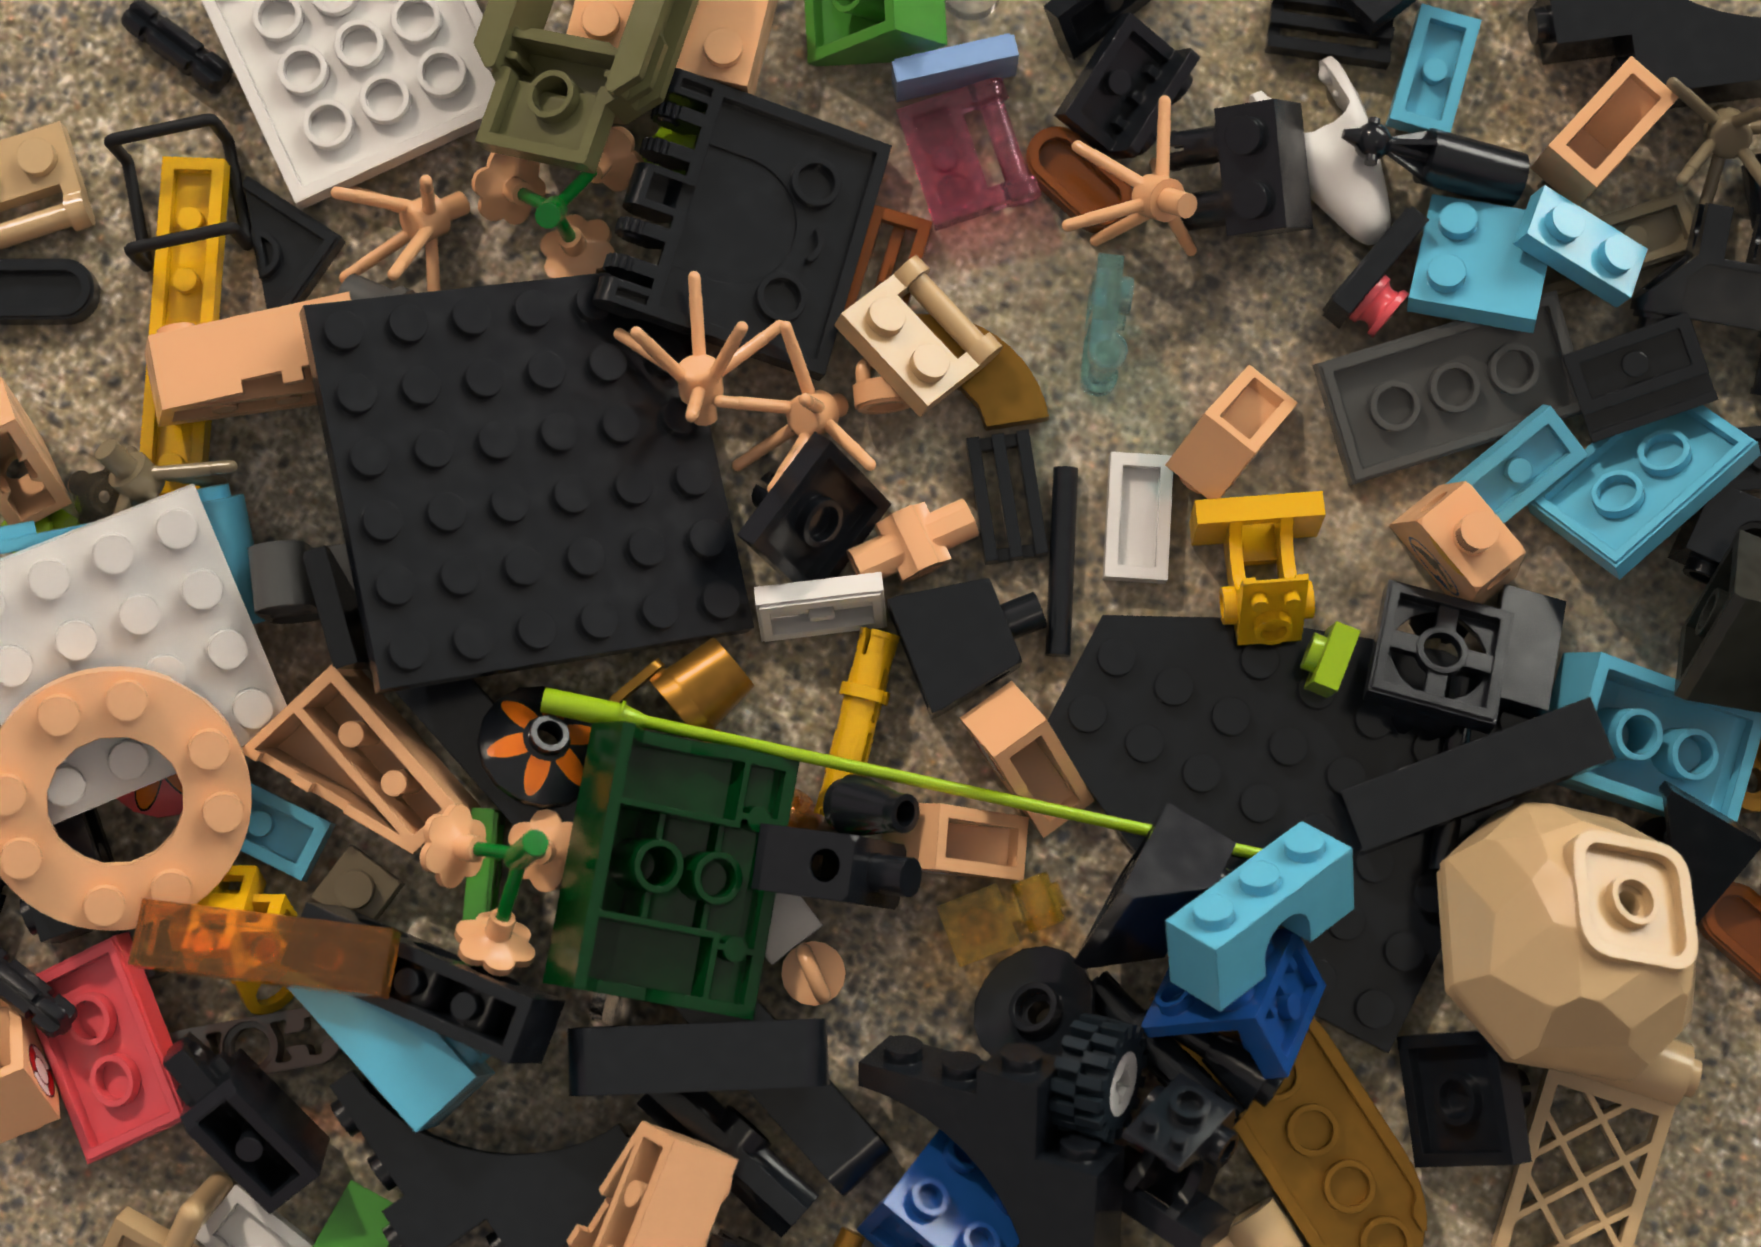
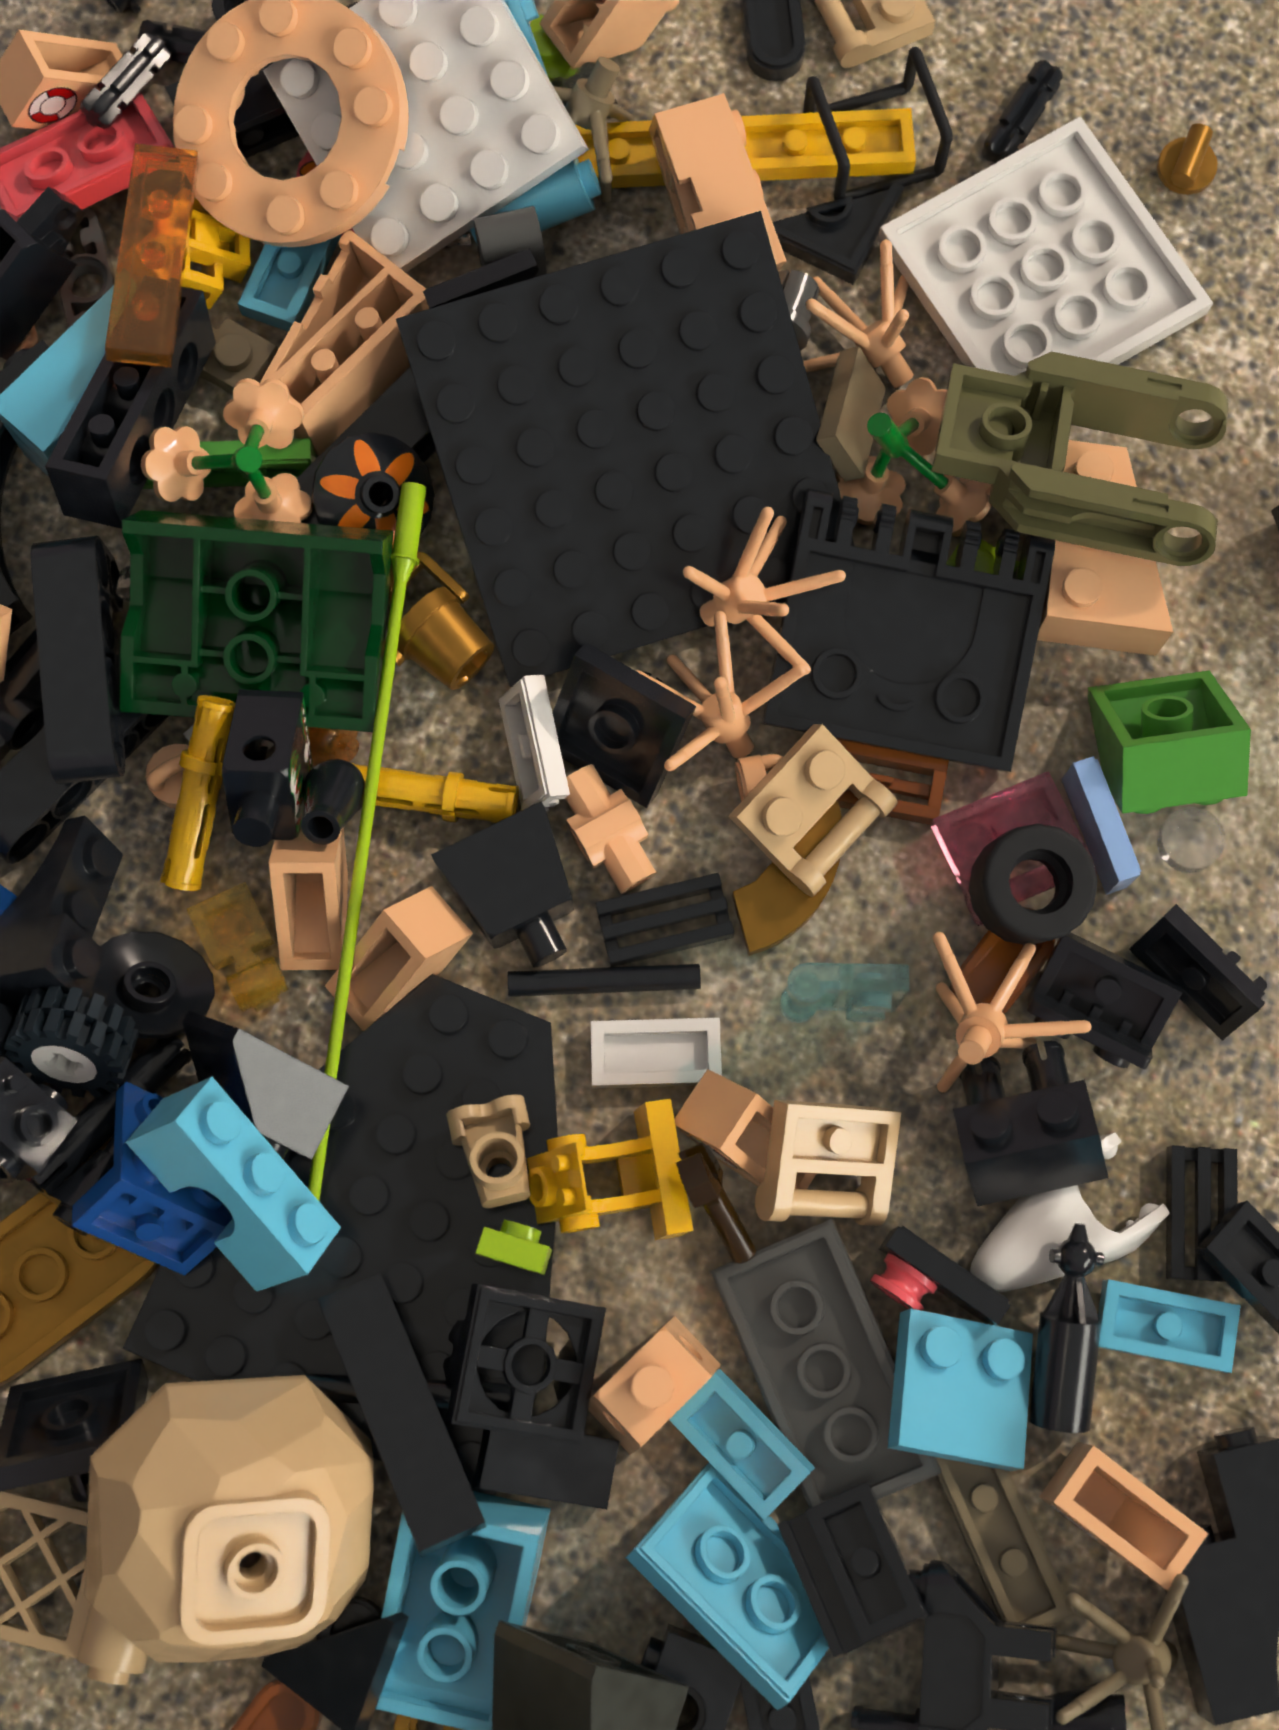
camera: 85 degrees right, 5 degrees down
(503, 254) = (851, 401): none -> dark tan tile
(821, 935) = (198, 794): none -> yellow pin
(1028, 99) = (1072, 876): none -> black tyre
(1215, 672) = (490, 1137): none -> tan plate
(1249, 357) = (829, 1141): none -> tan plate
(1289, 473) = (704, 1186): none -> dark brown bar
(1580, 246) = (989, 1494): medium azure plate -> none

